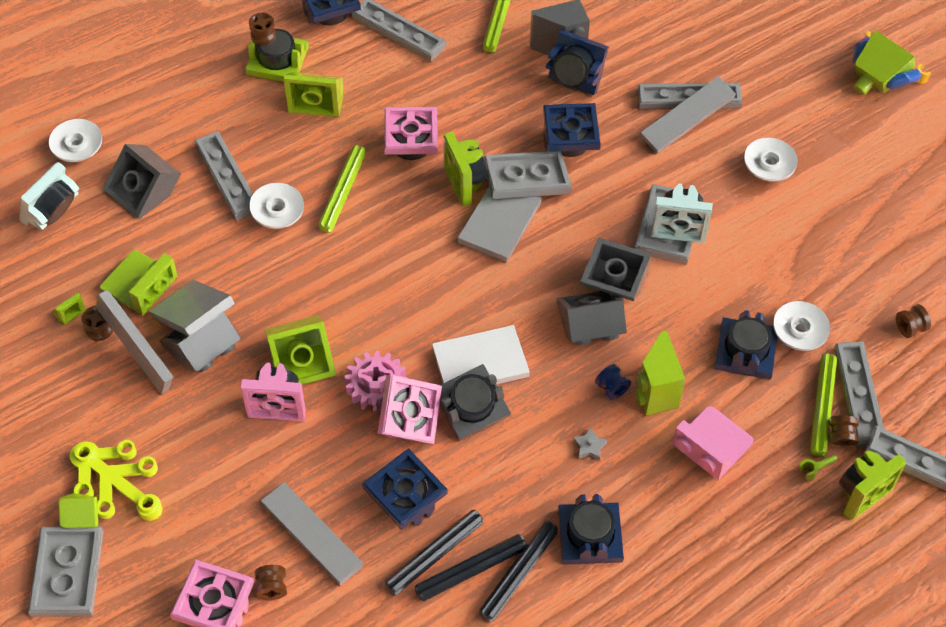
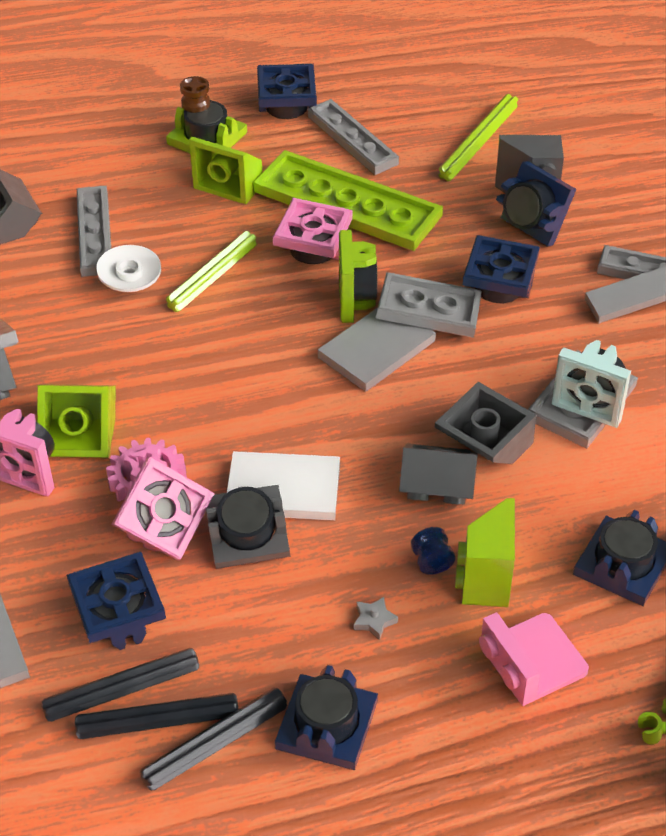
camera: 20 degrees right, 10 degrees down
(455, 96) = (375, 207): none -> lime plate

